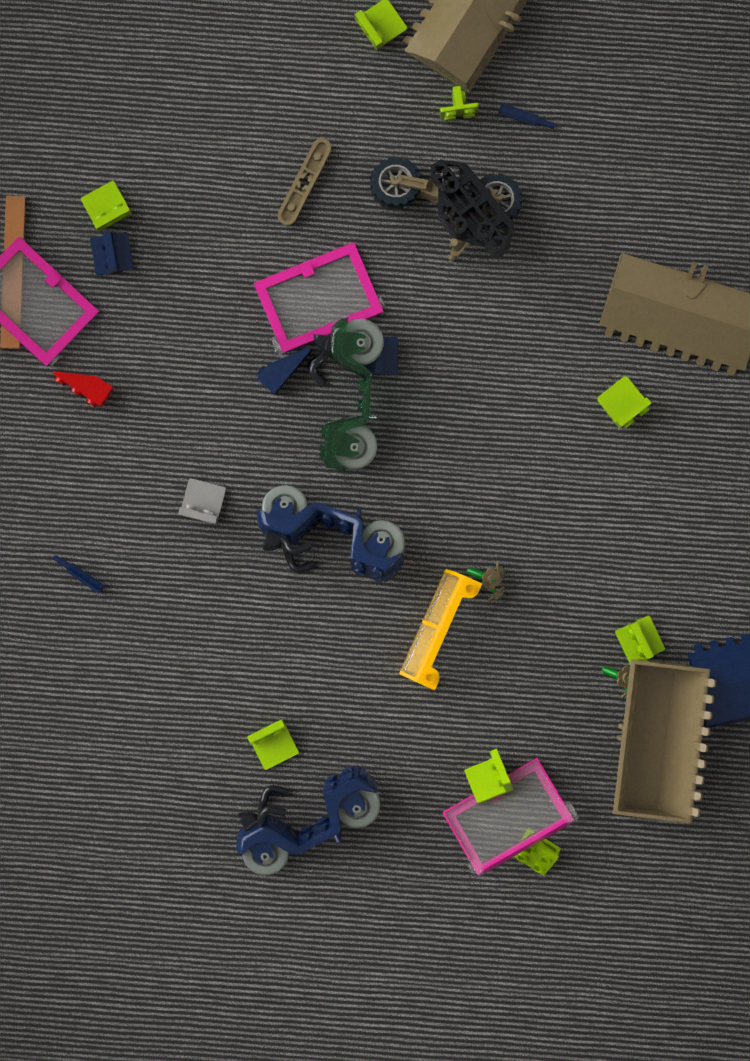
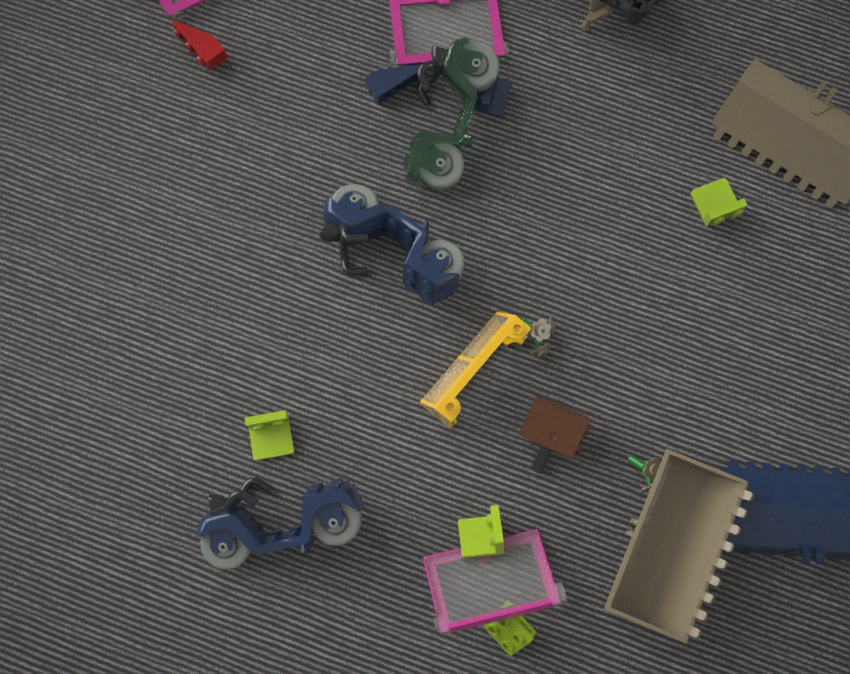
camera: 10 degrees right, 10 degrees down
(81, 575) = (135, 217): dark blue axle -> none
(202, 501) = (276, 181): light grey bracket -> none
(527, 665) = (554, 429): none -> reddish brown piece
(640, 639) = (676, 435): lime bracket -> none

